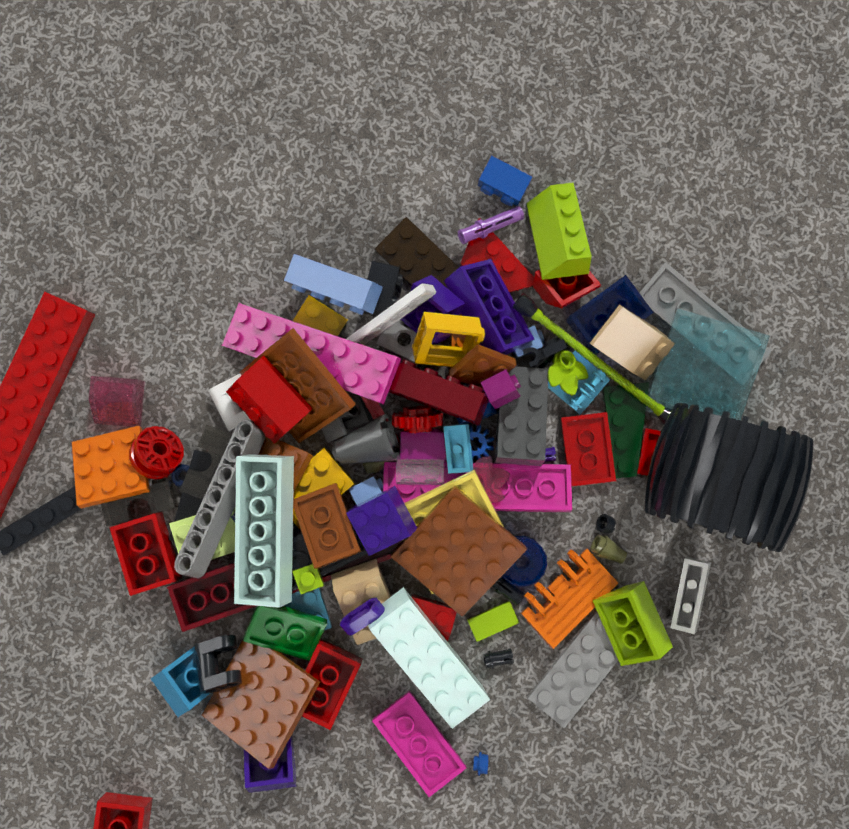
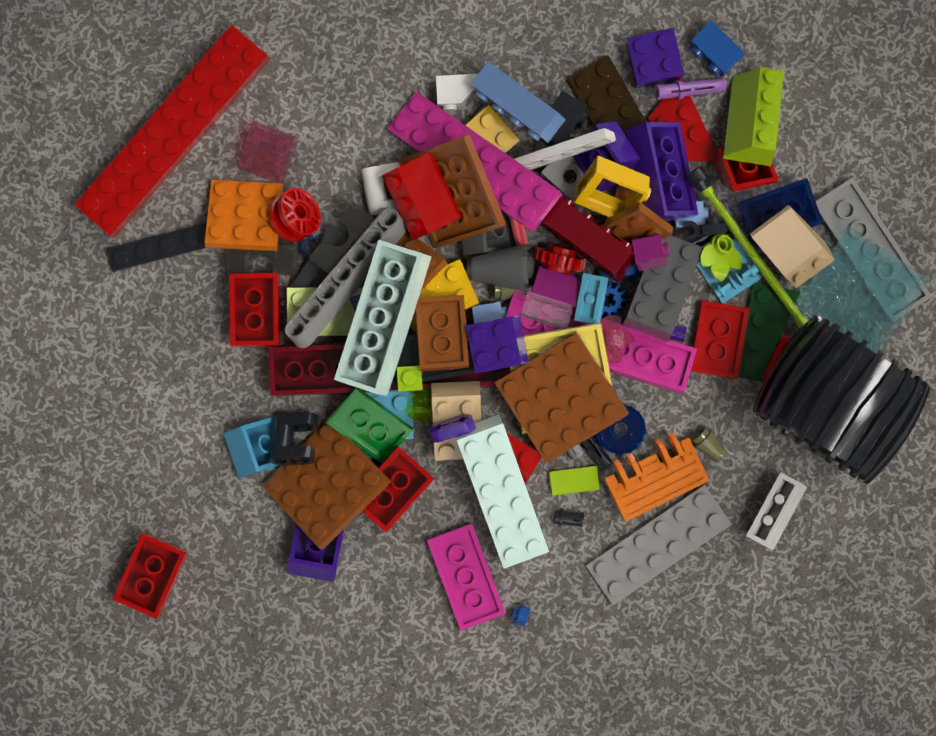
camera: 20 degrees right, 0 degrees up
(272, 292) = (454, 90): none -> white slope
(328, 599) = (421, 406): none -> clear neon green wheel
(449, 206) = (654, 58): none -> dark purple brick
(611, 522) = (717, 422): black hinge -> none
(633, 624) = (710, 521): lime slope -> none

